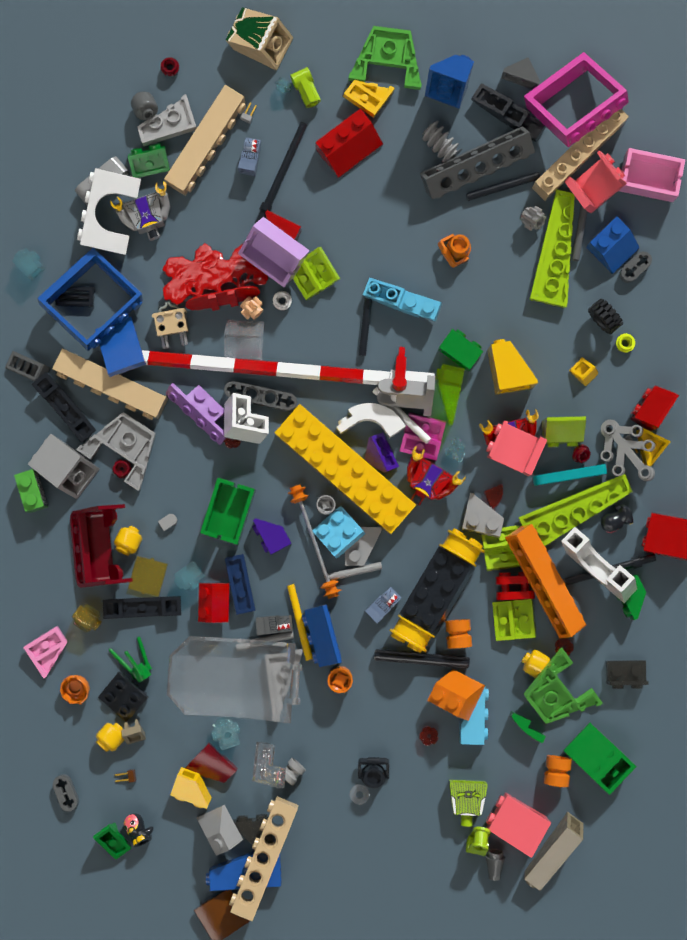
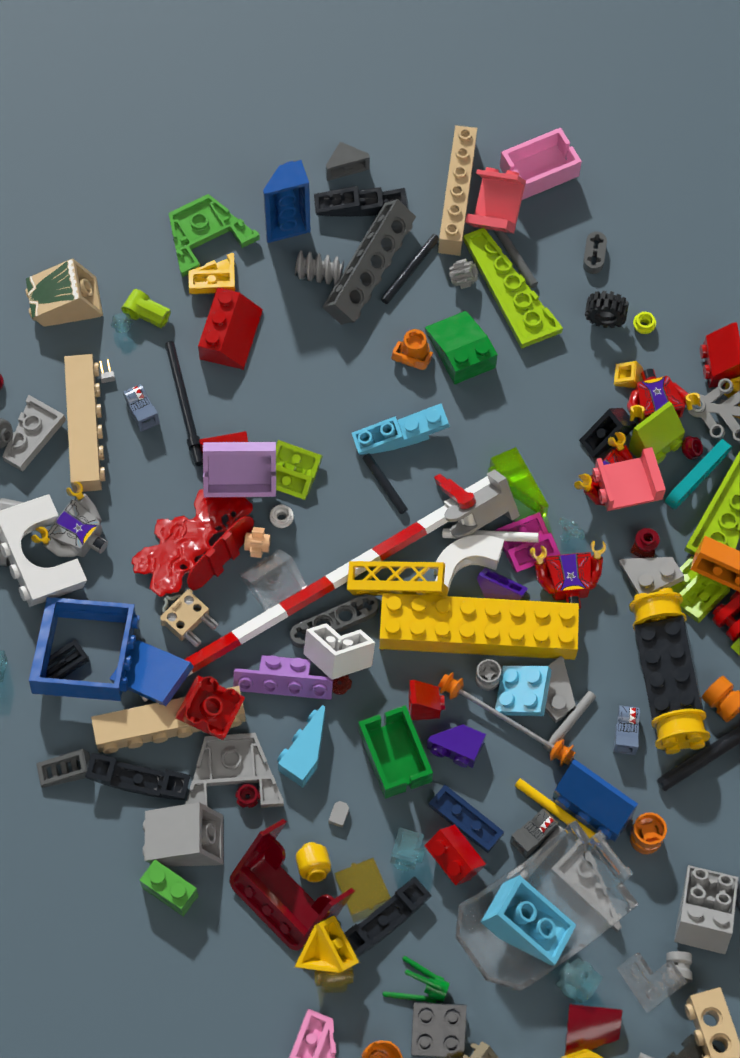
camera: 40 degrees left, 20 degrees down
(89, 604) = (327, 949): none -> yellow slope
(135, 398) = (210, 707): none -> red slope
(148, 161) = (41, 479): green bracket -> none
(175, 469) = (303, 756): none -> medium azure slope
(221, 679) = (528, 921): none -> medium azure slope
(272, 493) = (424, 701): none -> red slope
(313, 407) = (377, 587): none -> yellow fence
(338, 750) = (707, 910): none -> light grey slope
(460, 349) = (495, 435): green brick -> none
(491, 268) = (462, 347): none -> green slope
(491, 494) = (644, 545): none -> dark red plate
(508, 368) = (558, 416): yellow slope -> none
(541, 400) = (612, 421): none -> black slope
(563, 78) = (377, 170): dark pink window -> none
(586, 402) = (656, 392): none -> torso
(613, 245) = (558, 246): blue slope -> none

